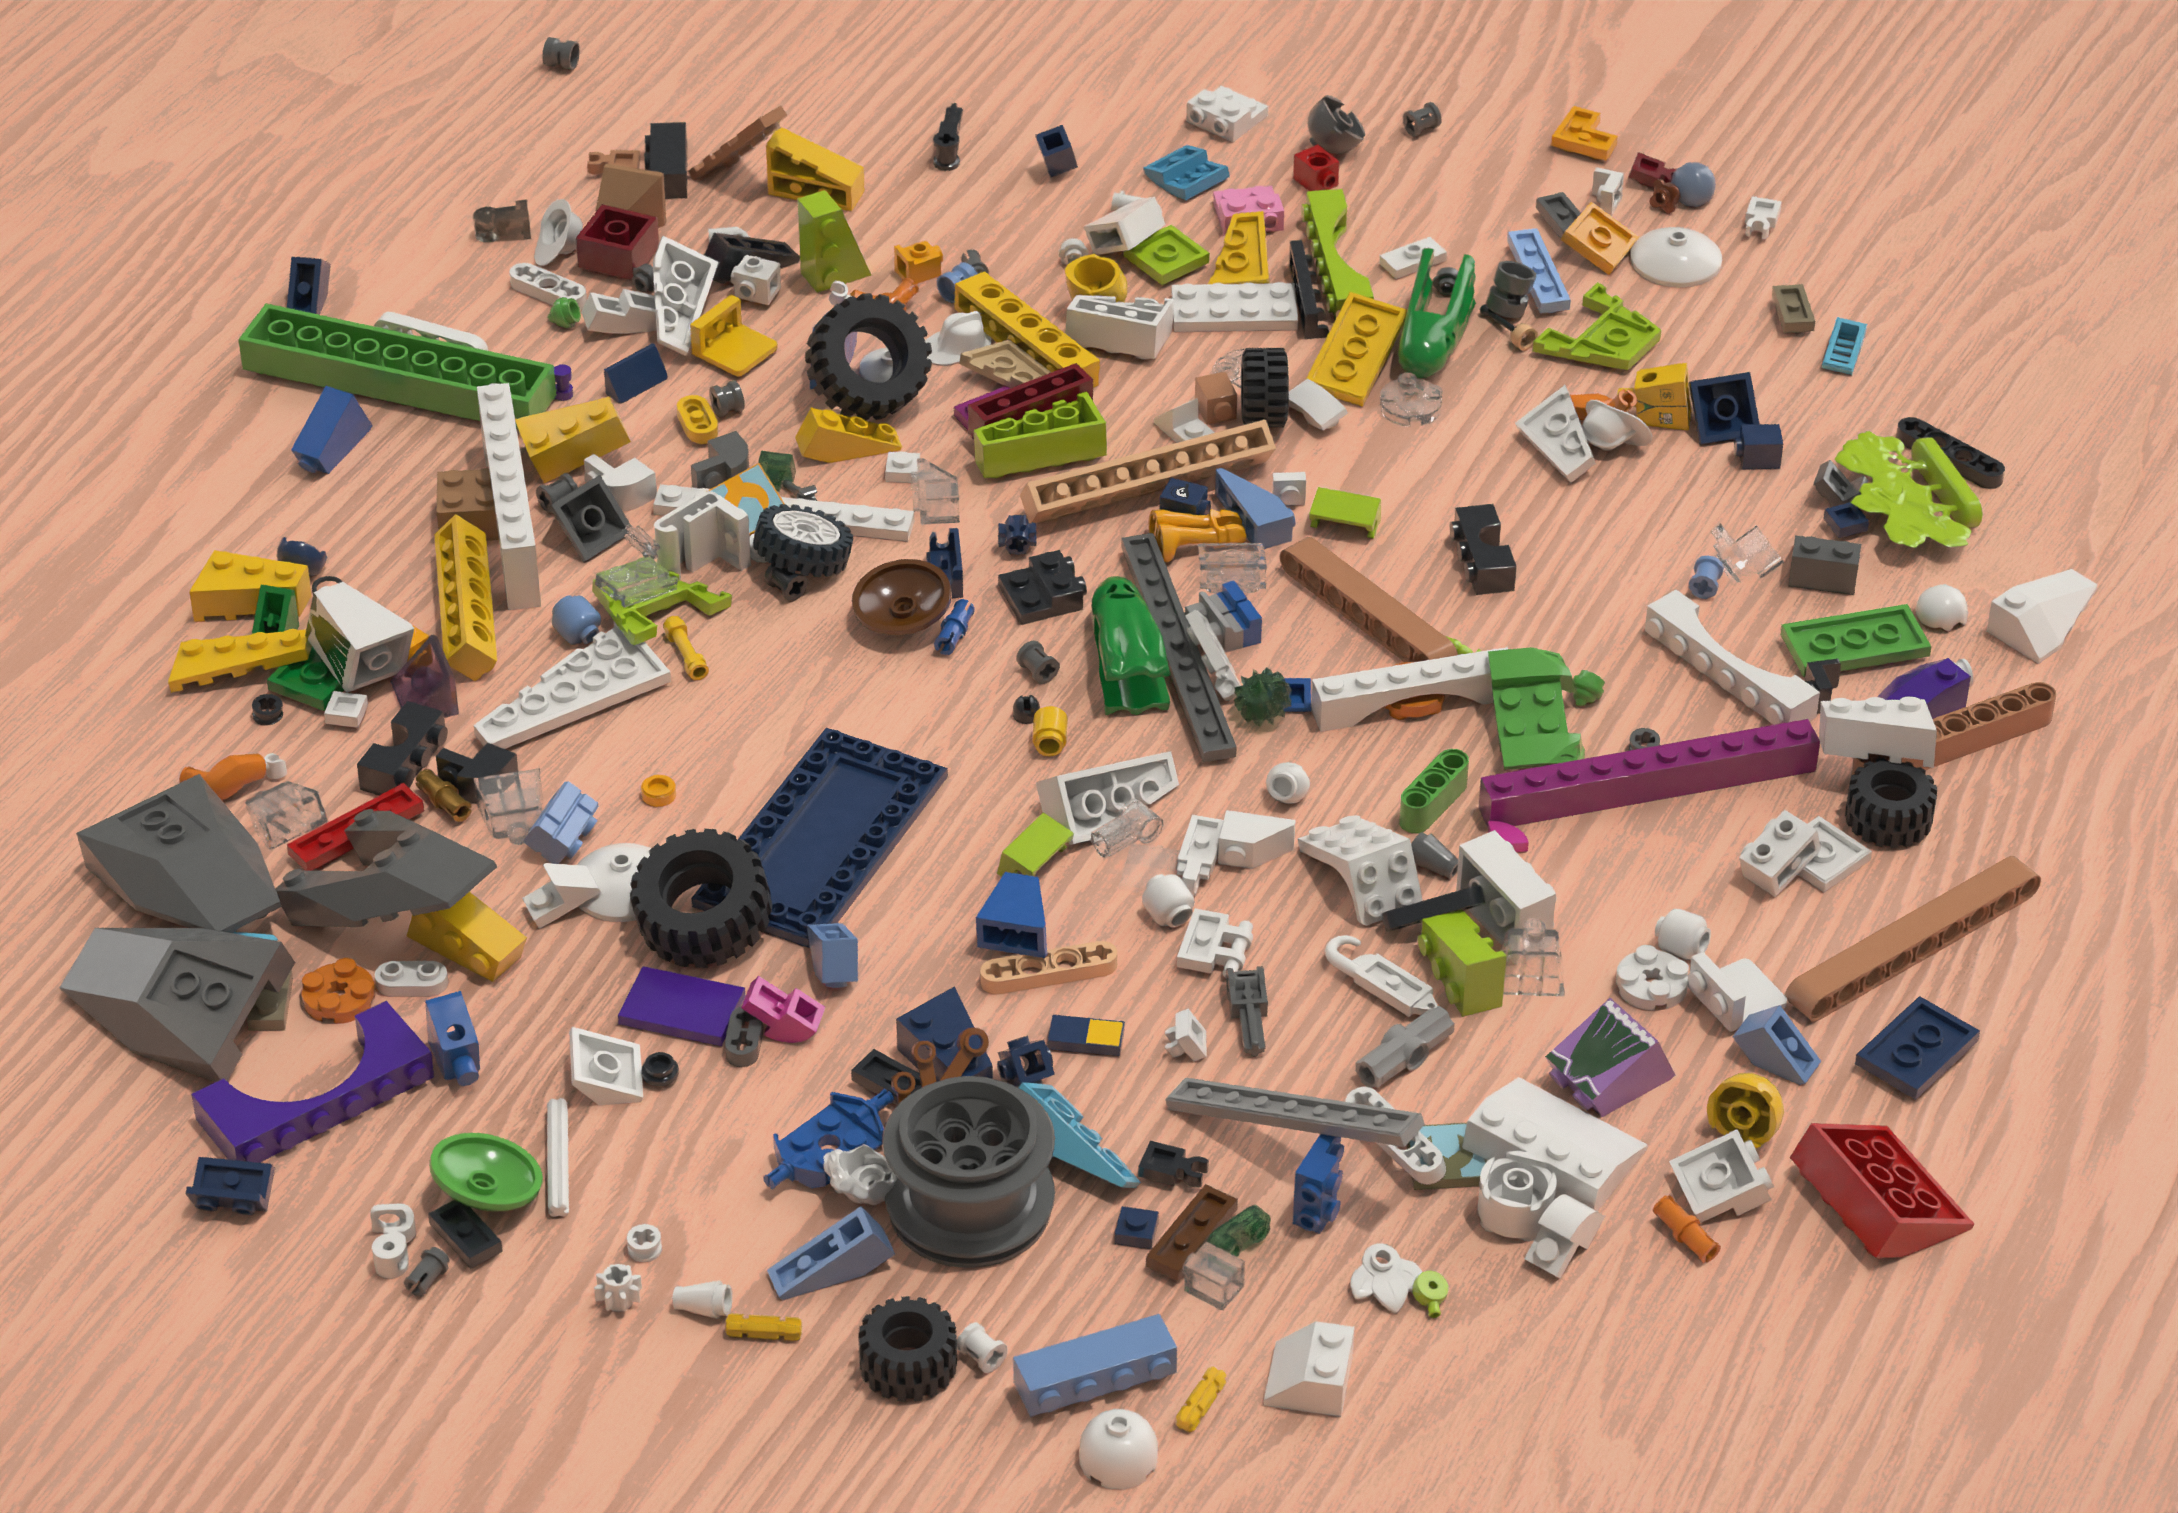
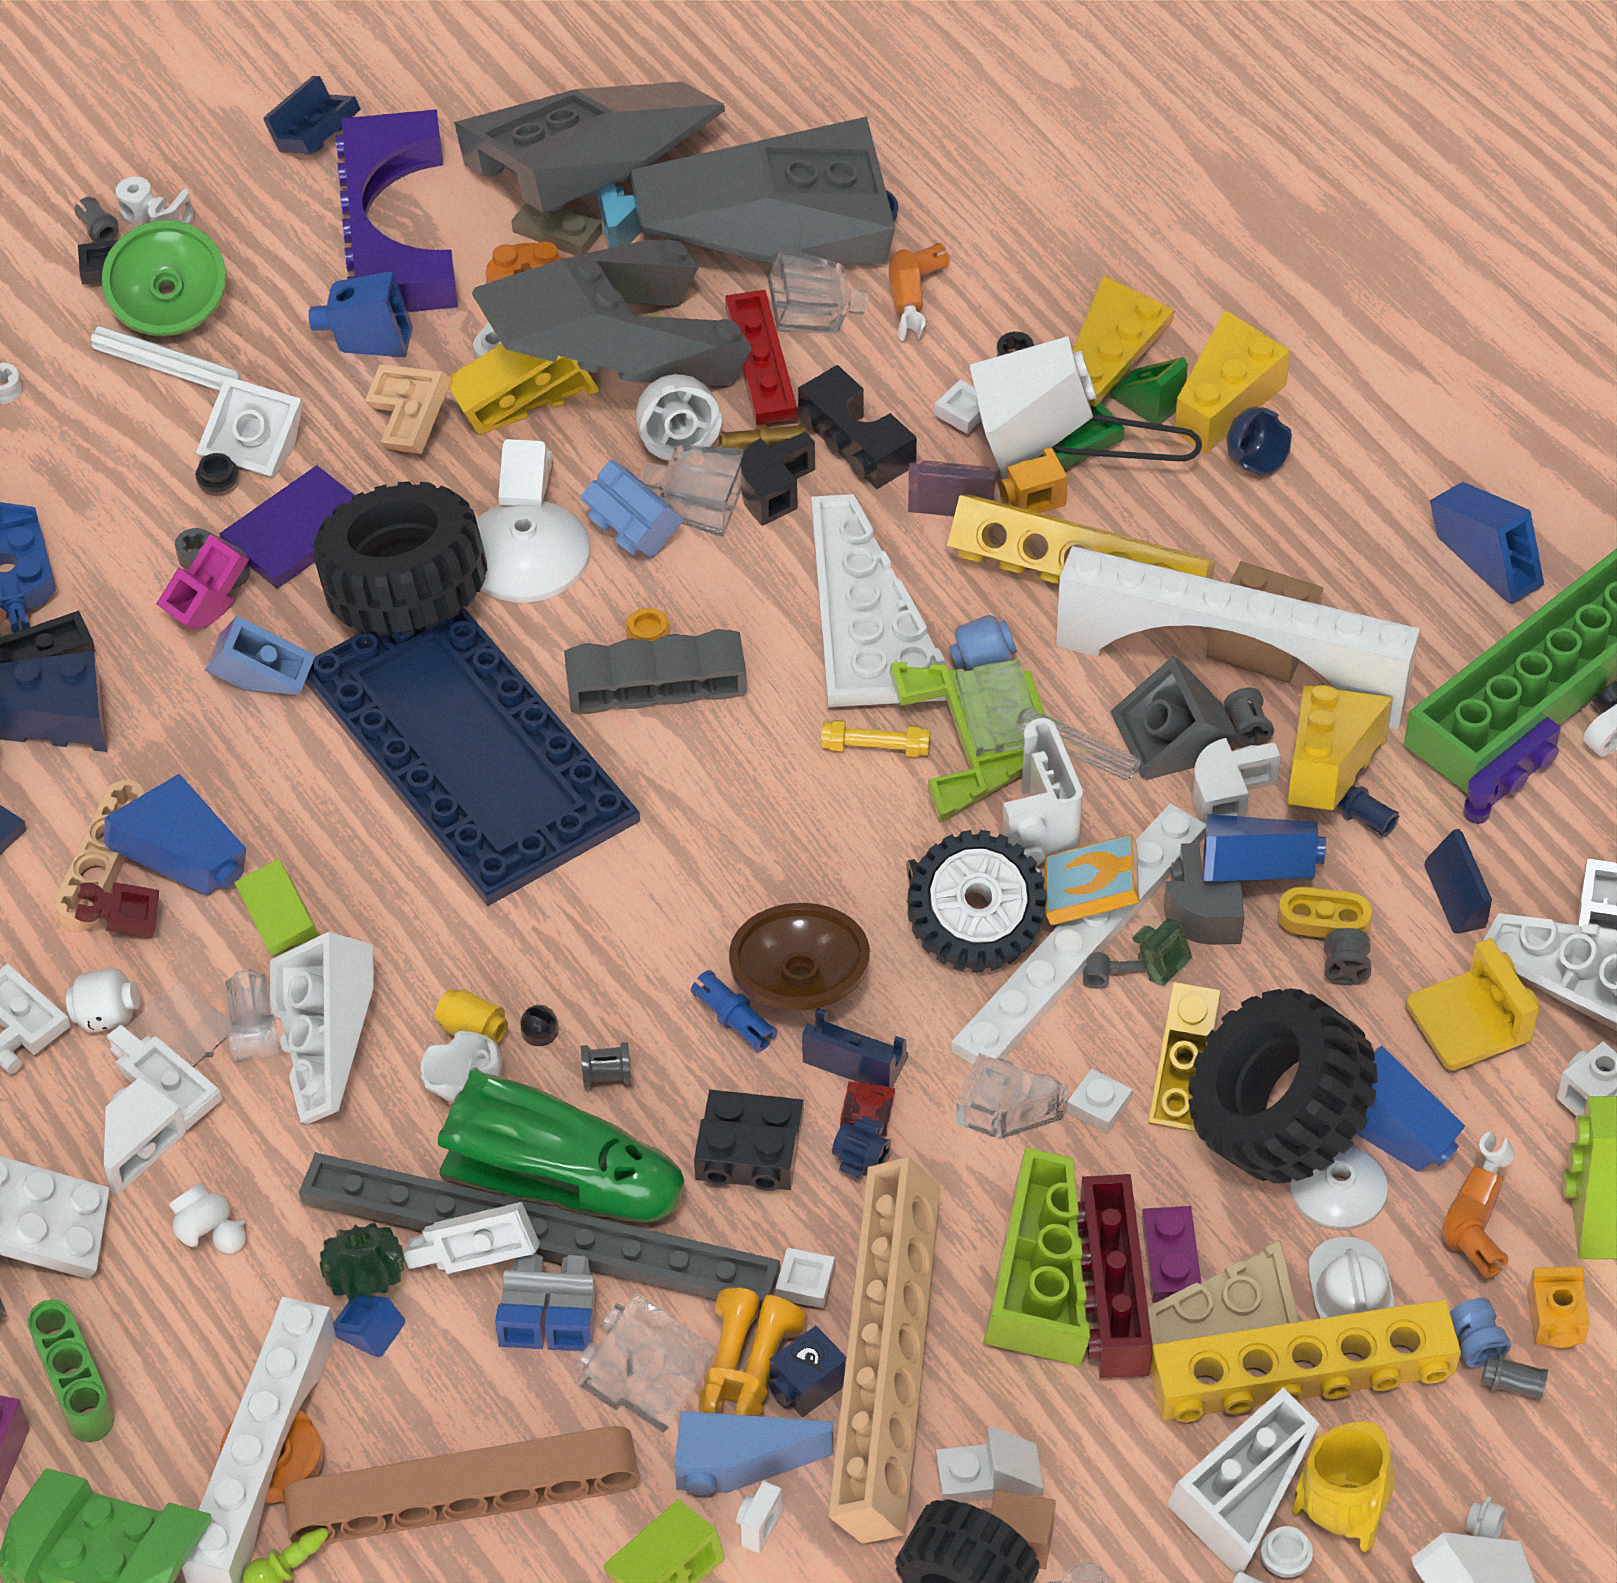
camera: 120 degrees right, 10 degrees up
(458, 823) = (677, 413): none -> white cylinder
(522, 976) = (415, 402): none -> light nougat plate
(676, 445) = (1260, 848): none -> blue slope
(702, 761) = (650, 672): none -> dark grey brick
(980, 554) = (868, 1101): none -> clear red tile
(1089, 924) = (126, 908): none -> dark red plate
(1093, 710) = (448, 1065): none -> white hair
(1120, 526) = (805, 1277): none -> white plate

